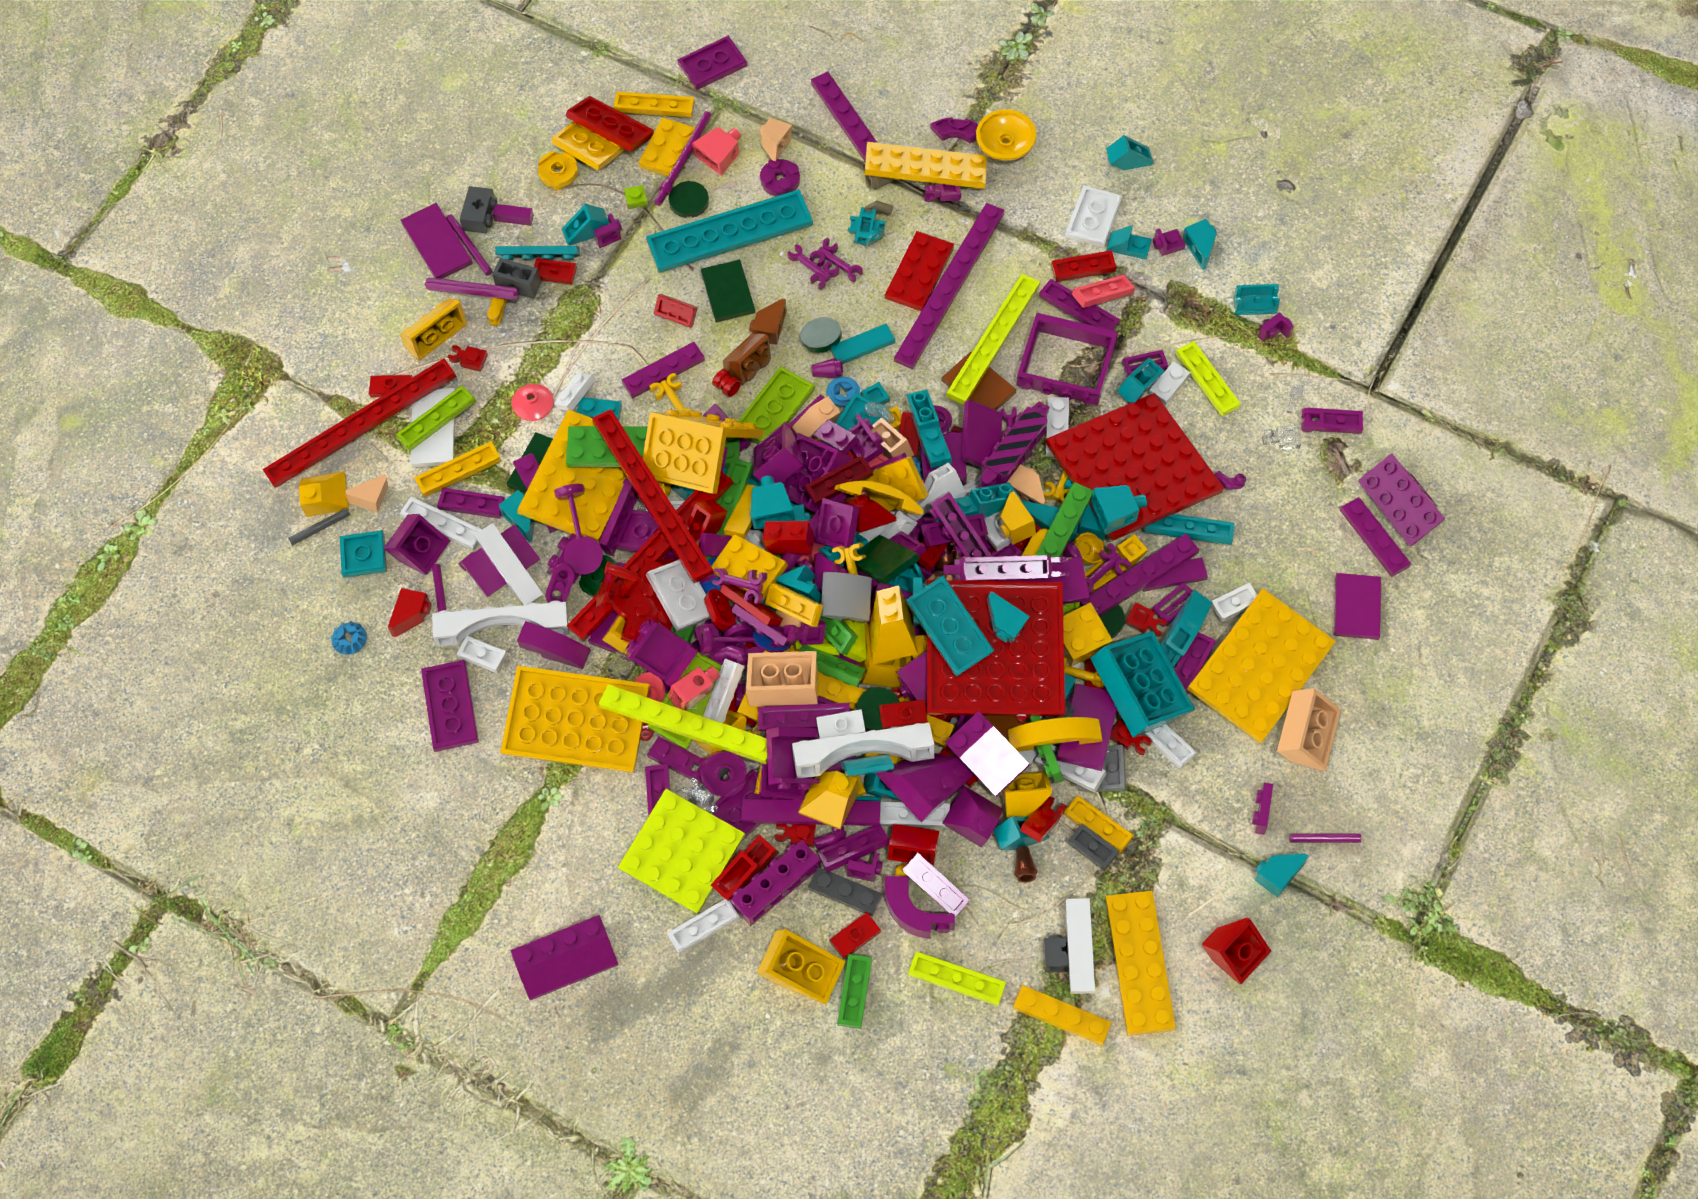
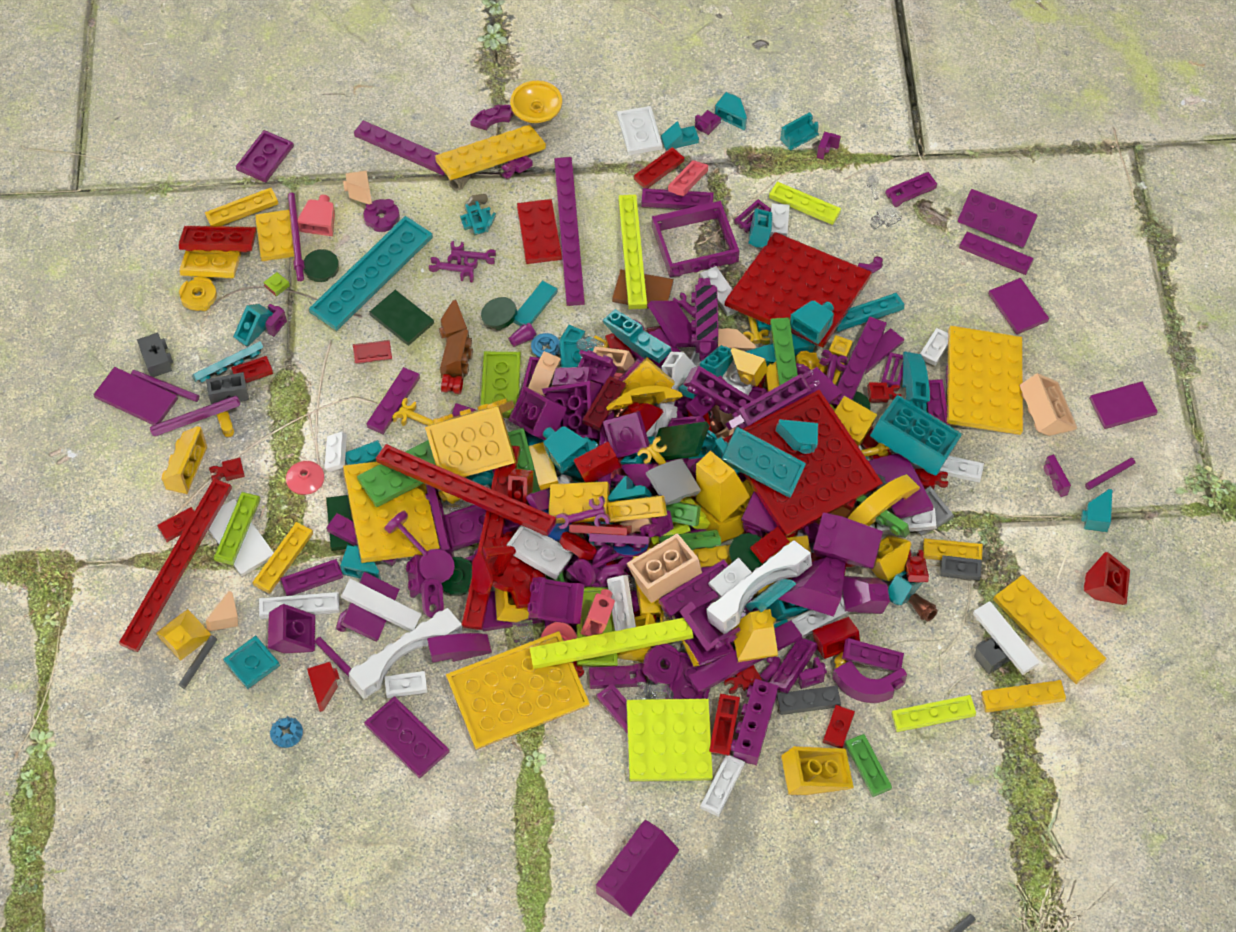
camera: 35 degrees left, 5 degrees down
(513, 214) = (185, 345): magenta piece -> none
(1129, 154) = (634, 74): teal slope -> none
(1393, 773) = (1123, 405): none -> magenta tile

